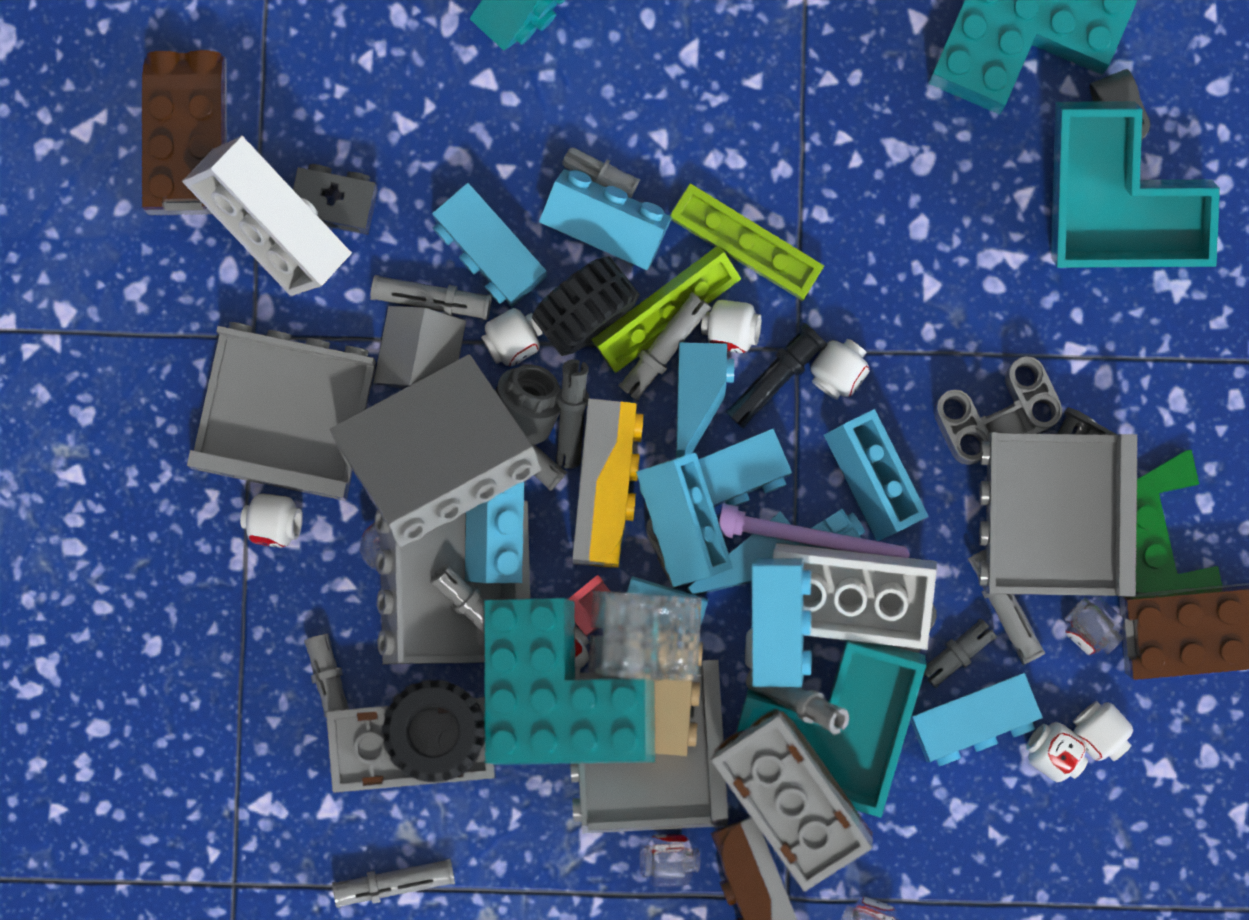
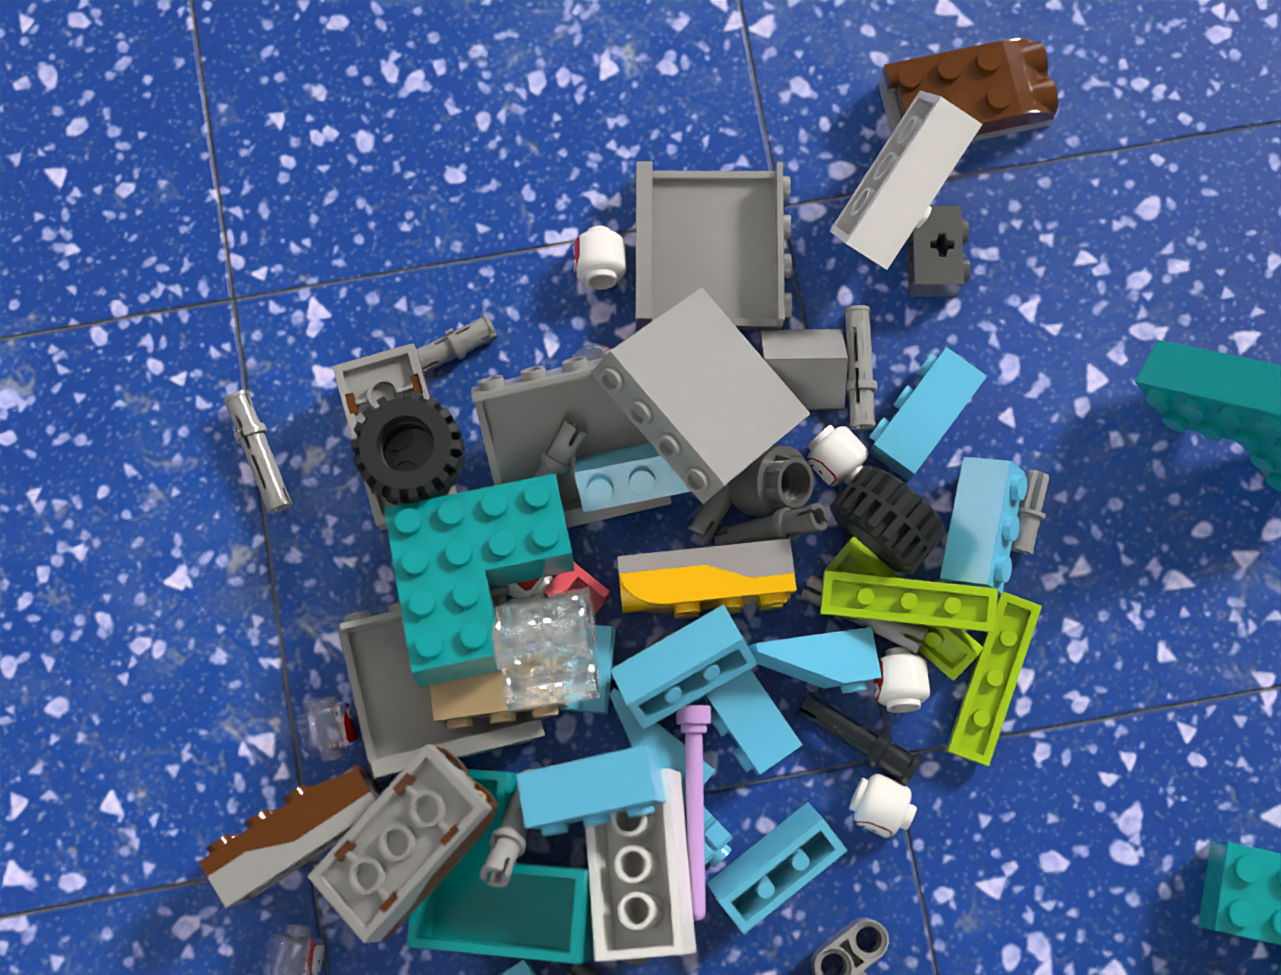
camera: 80 degrees right, 5 degrees down
(664, 304) = (909, 601): none -> lime plate

